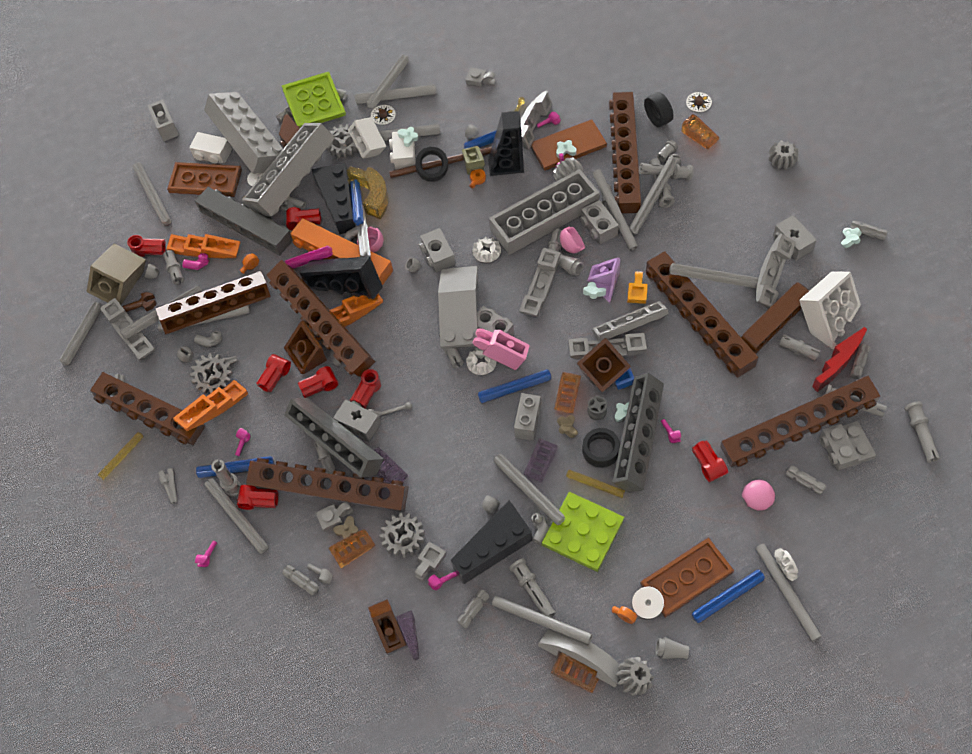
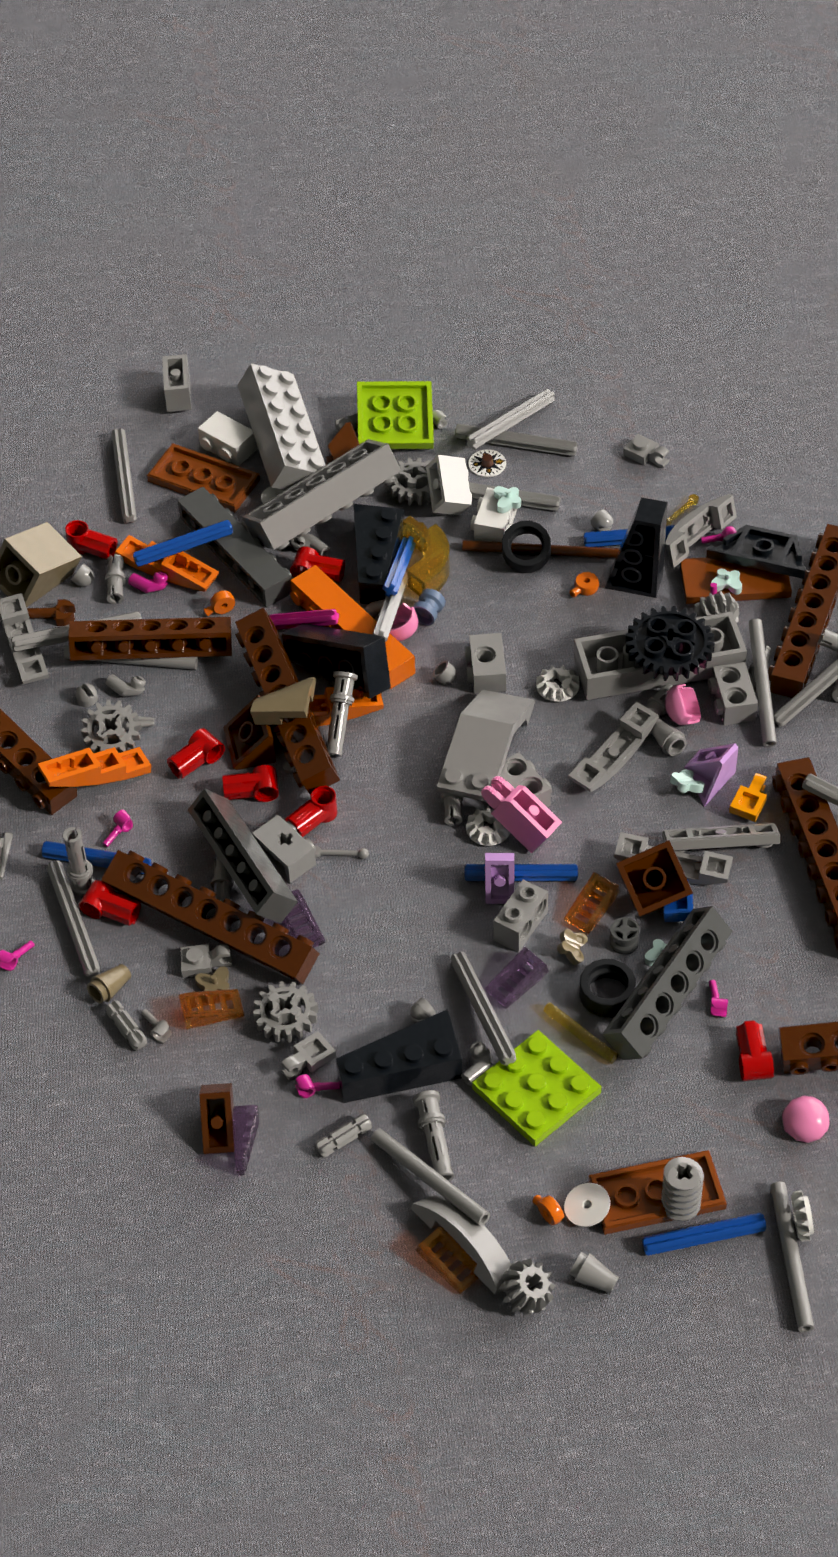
camera: 15 degrees right, 10 degrees down
(210, 230) = (183, 543): none -> blue axle
(276, 556) = (107, 984): none -> dark tan cone
(321, 322) = (284, 703): none -> dark tan slope
(354, 306) = (341, 701): none -> light grey pin
(385, 222) = (428, 606): none -> sand blue wheel
(473, 159) = (587, 557): olive slope -> none
(505, 396) = (499, 877): none -> lavender slope
(545, 200) = (669, 643): none -> black gear
(579, 121) = (761, 550): none -> black wing
(708, 574) = (682, 1188): none -> light grey piece

